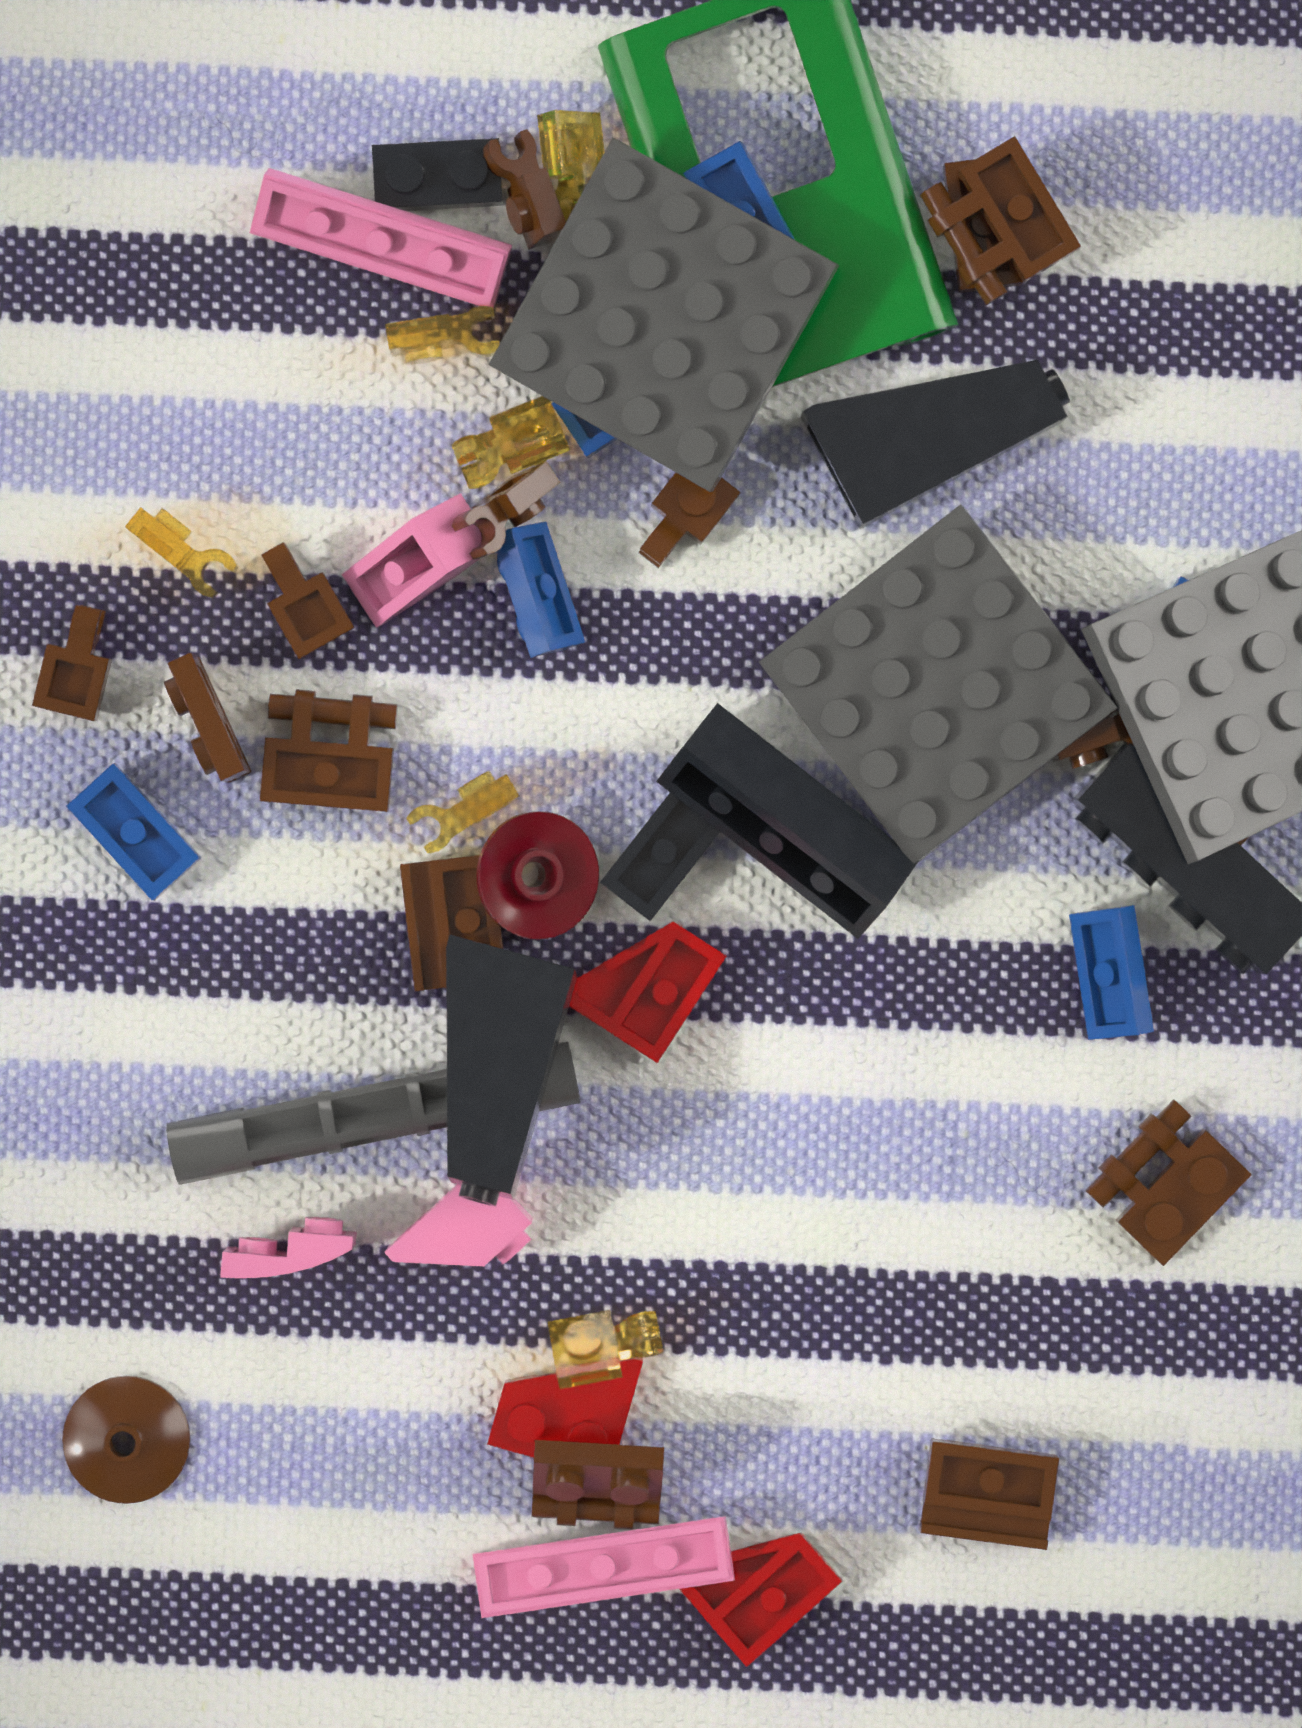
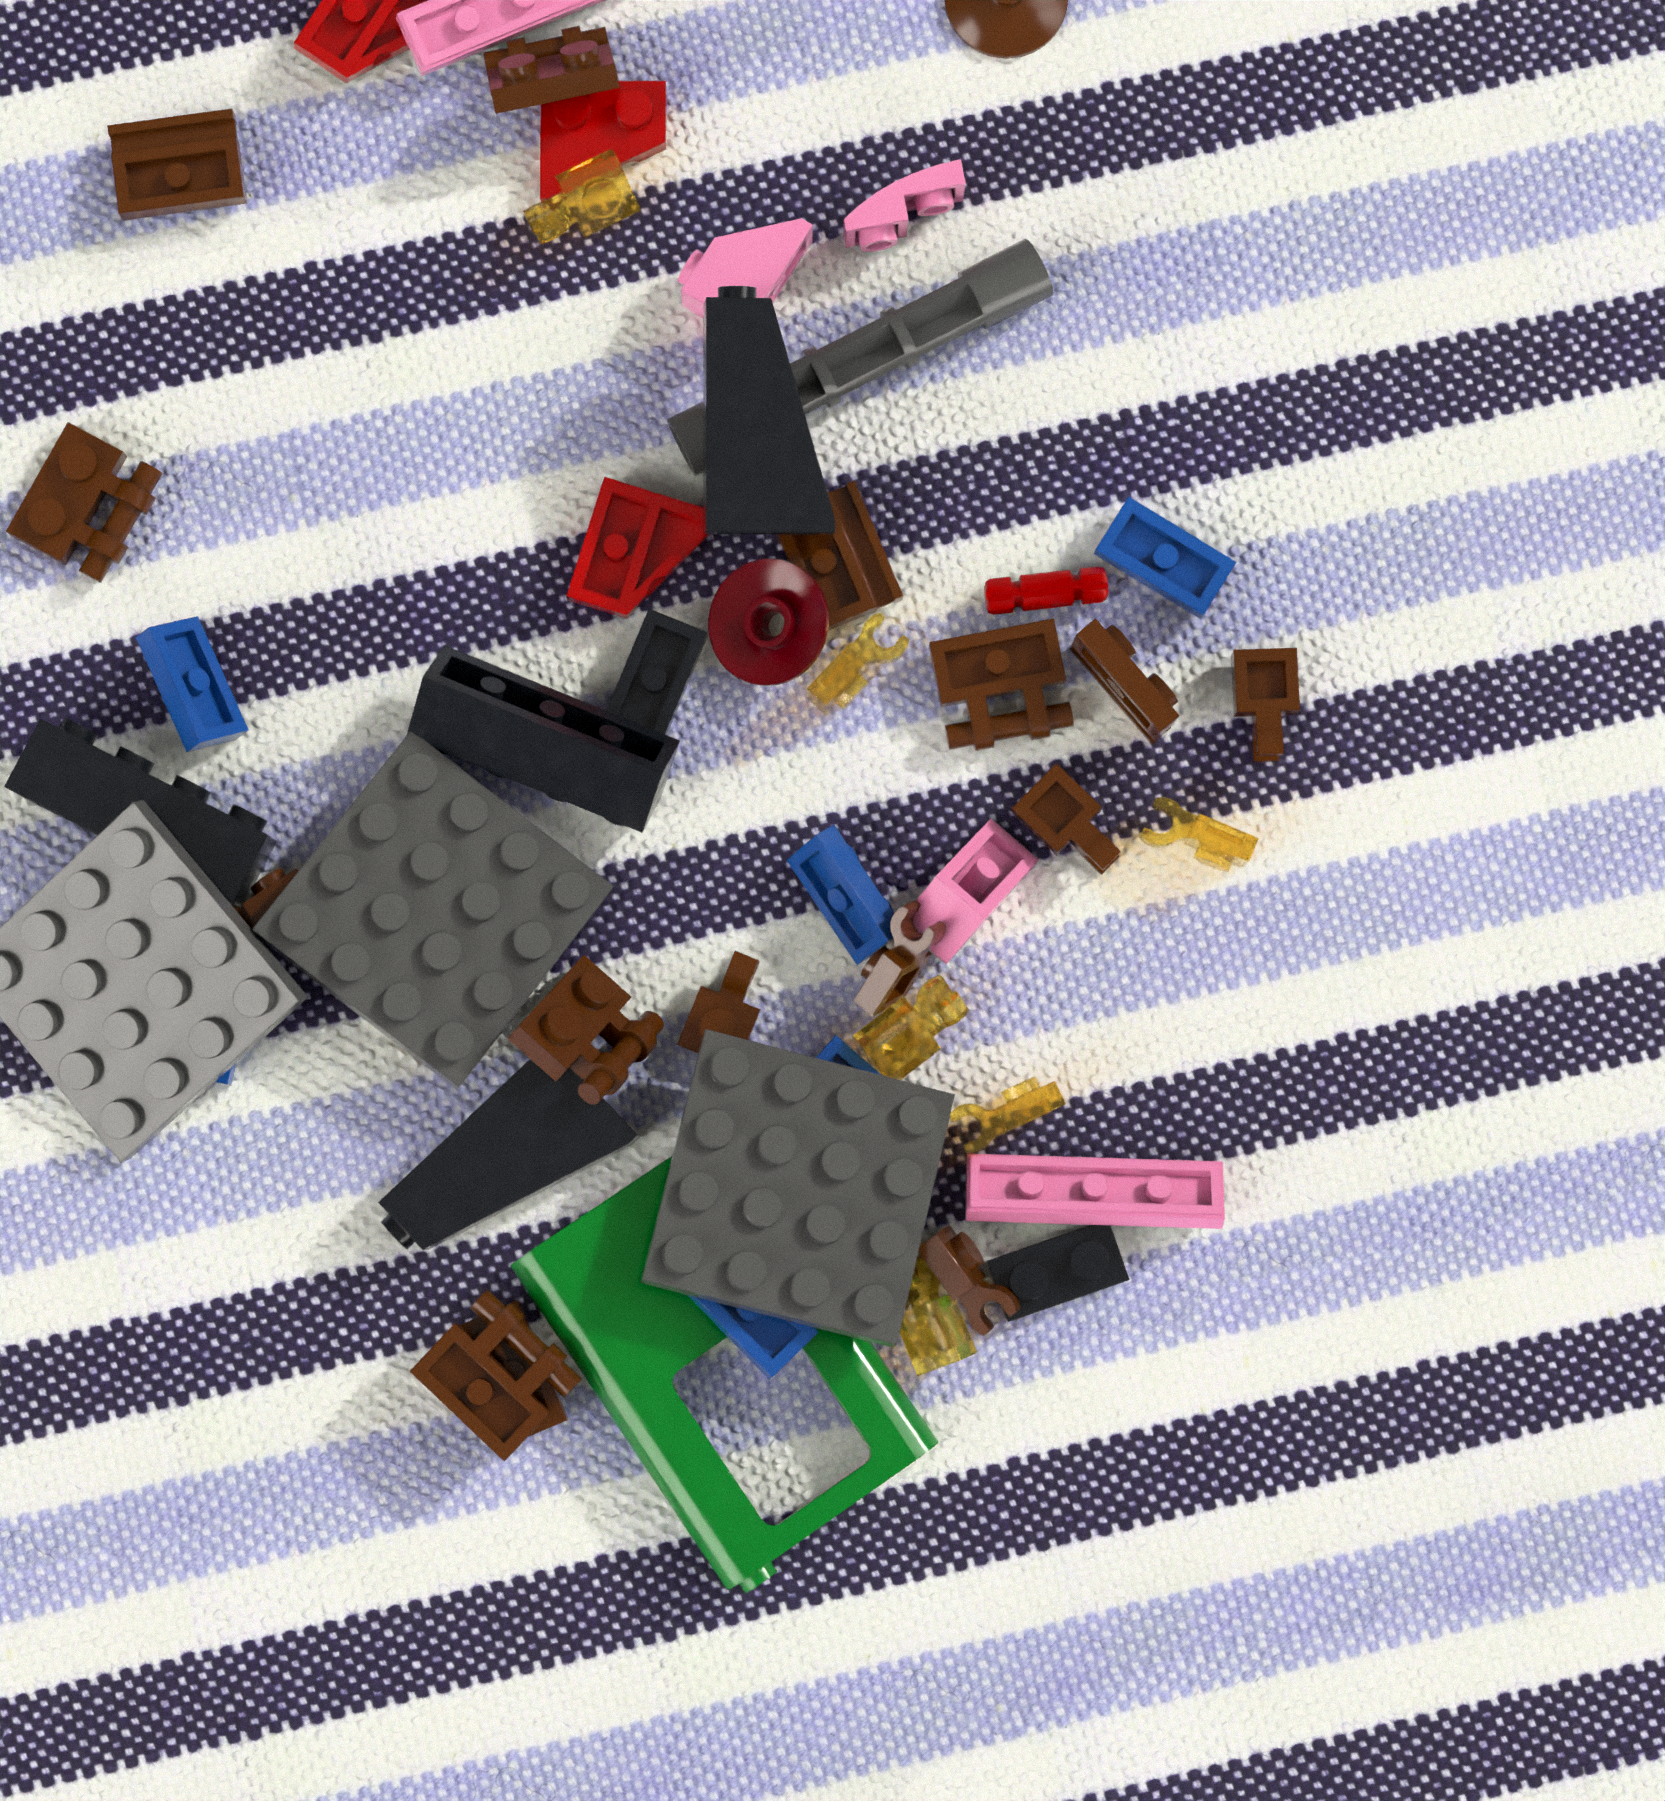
camera: 160 degrees right, 5 degrees down
(258, 833) = (1046, 590): none -> red axle
(836, 540) = (572, 1016): none -> reddish brown plate

